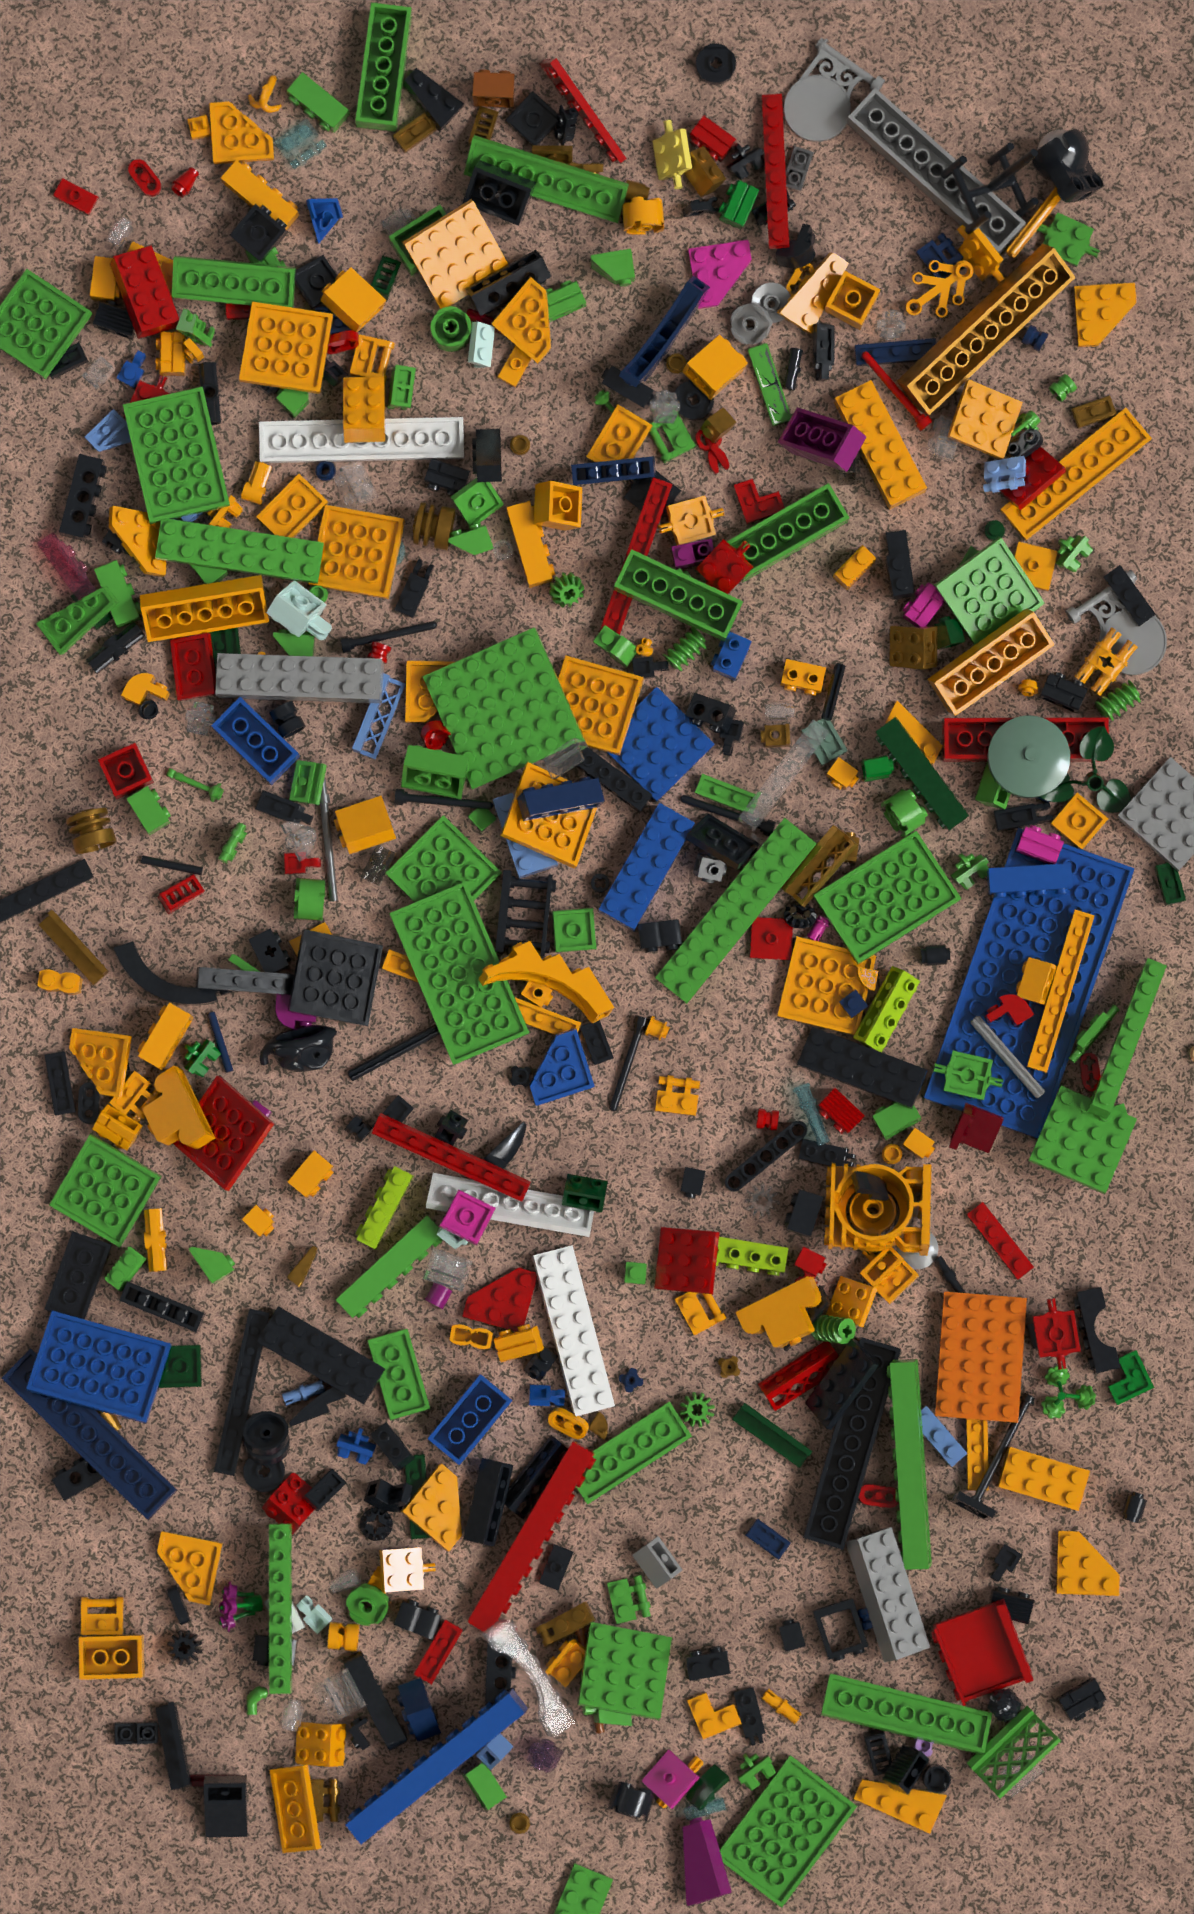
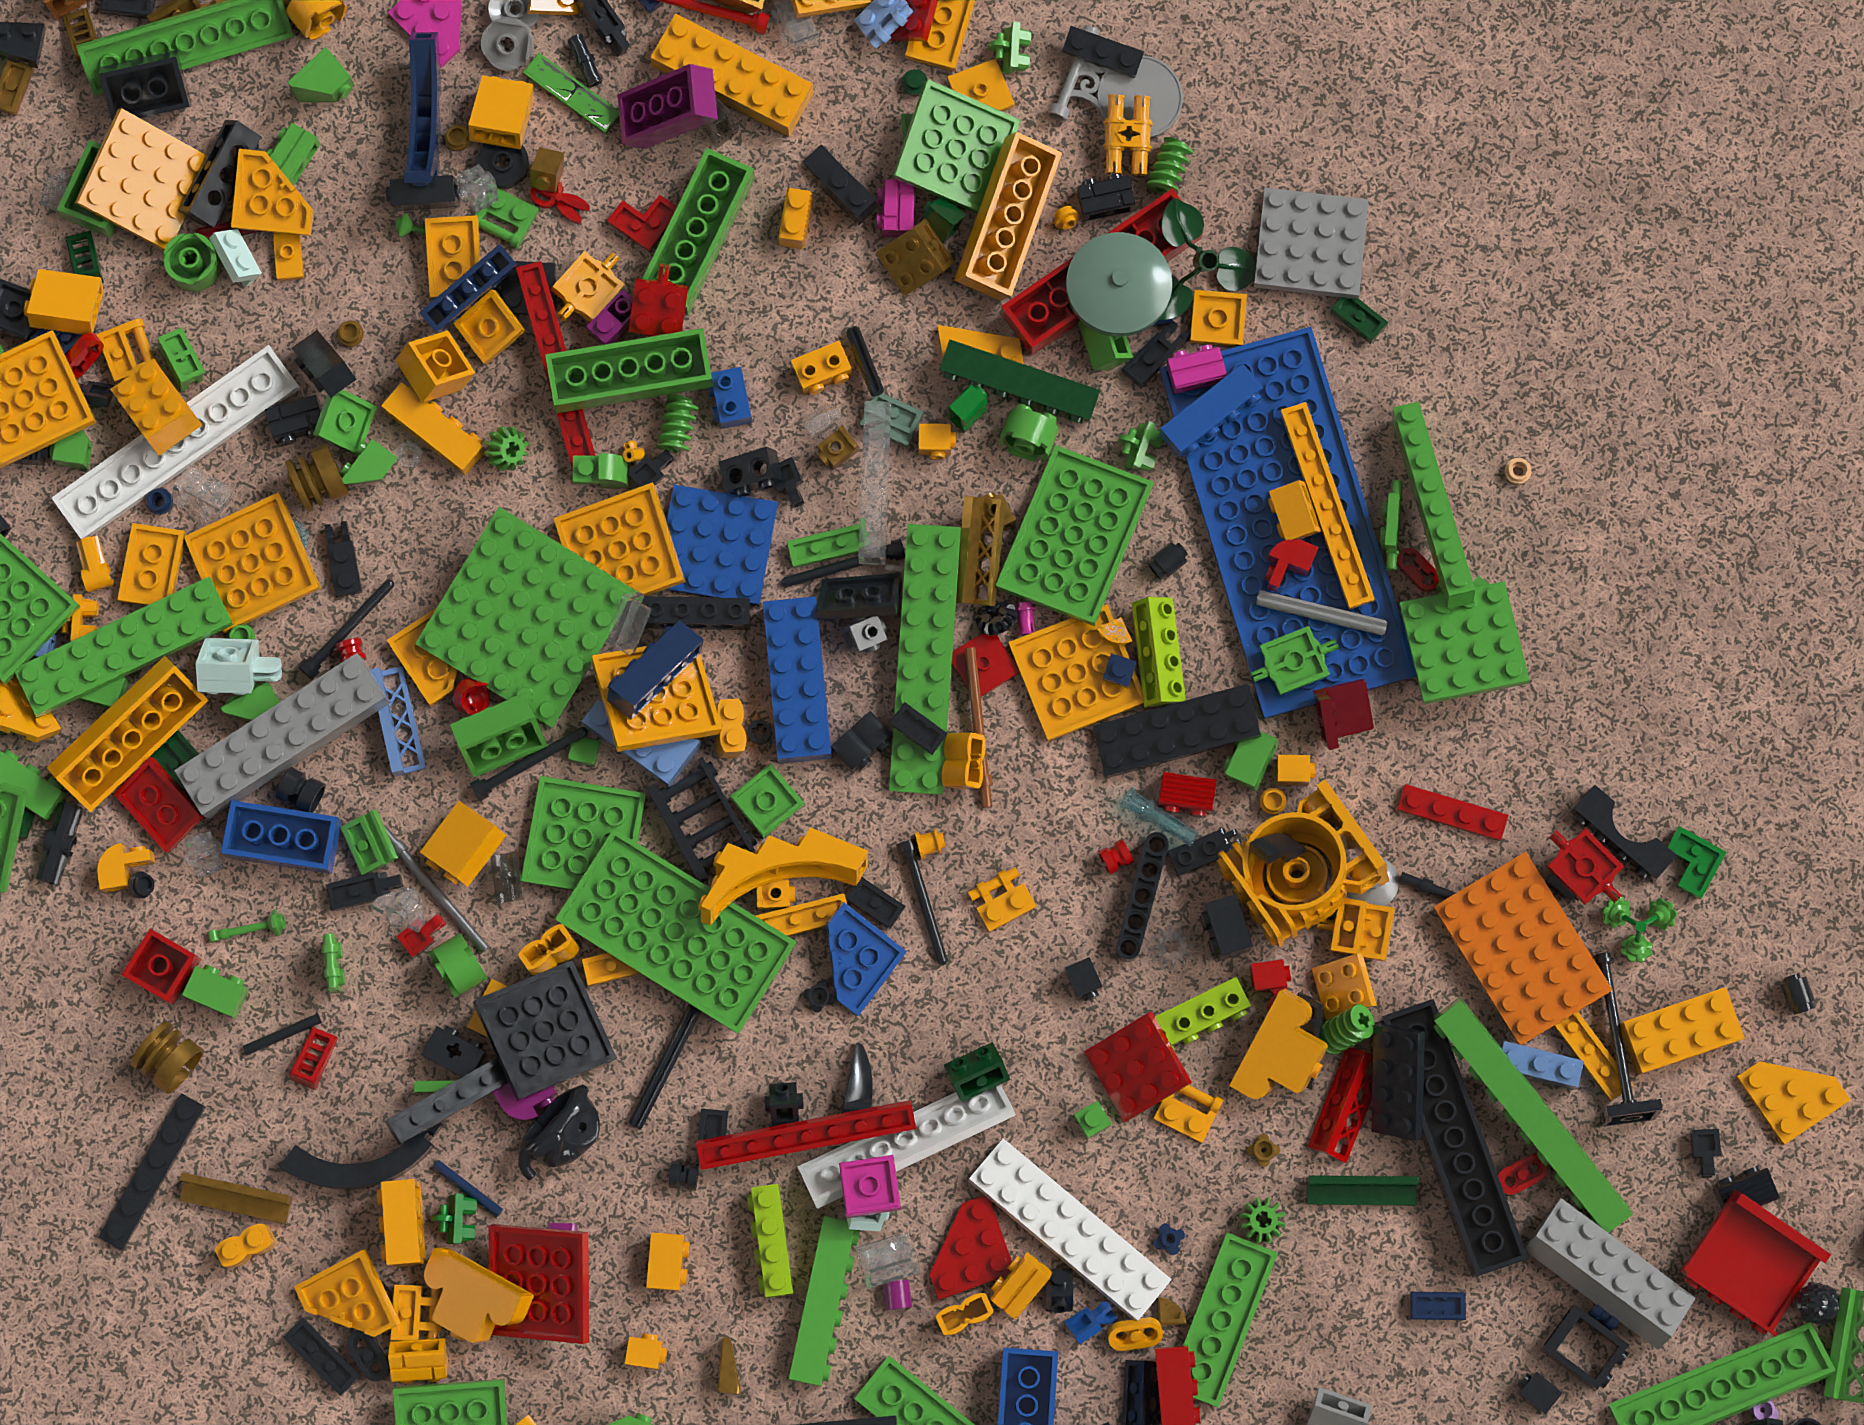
camera: 30 degrees left, 5 degrees down
(376, 930) = (552, 949): none -> light orange brick
(580, 876) = (732, 739): none -> light orange brick
(610, 503) = (489, 326): none -> light orange plate
(700, 952) = (918, 728): none -> black plate
(714, 992) = (963, 760): none -> light orange brick
(719, 1013) = (977, 718): none -> dark orange bar

